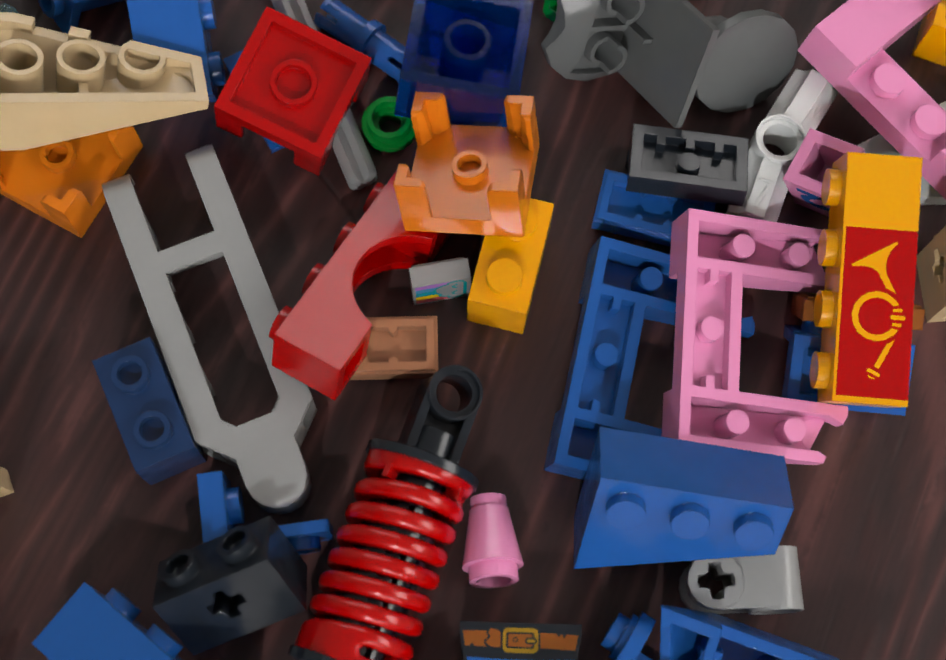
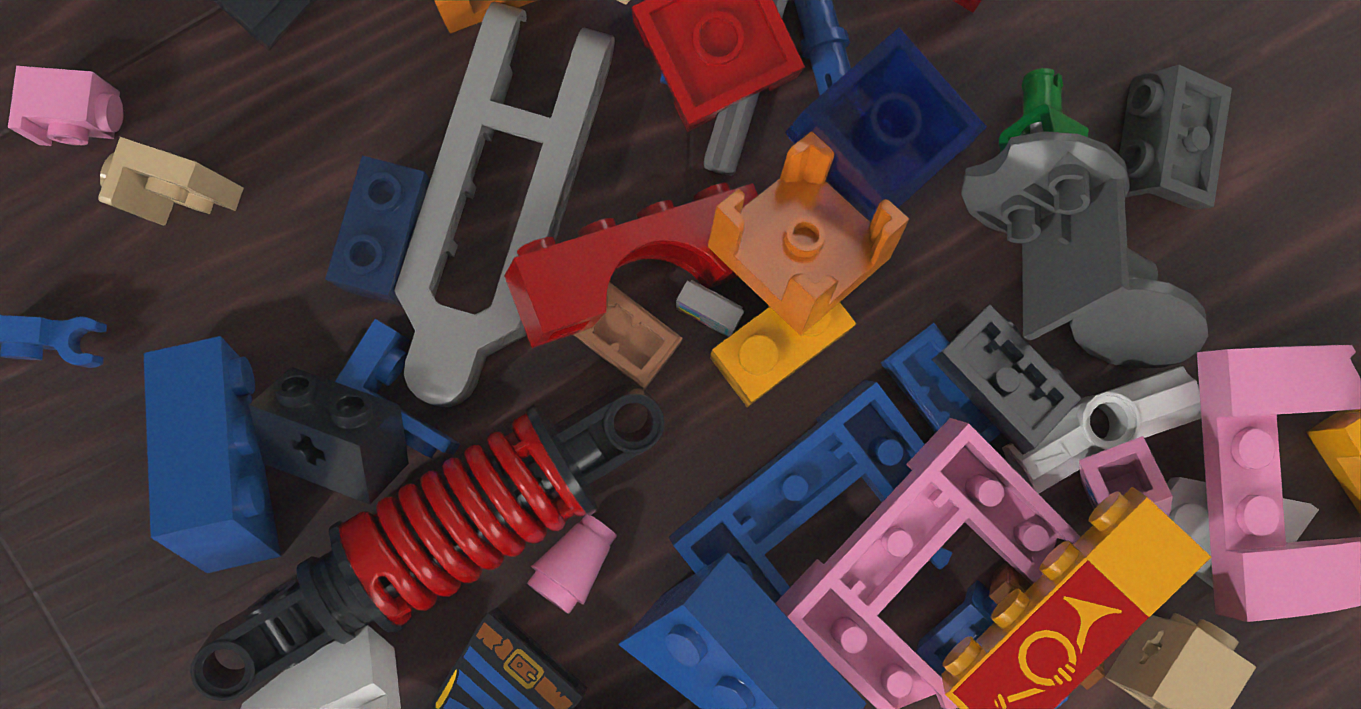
camera: 40 degrees right, 10 degrees up
(379, 113) = (767, 120): green plate -> none

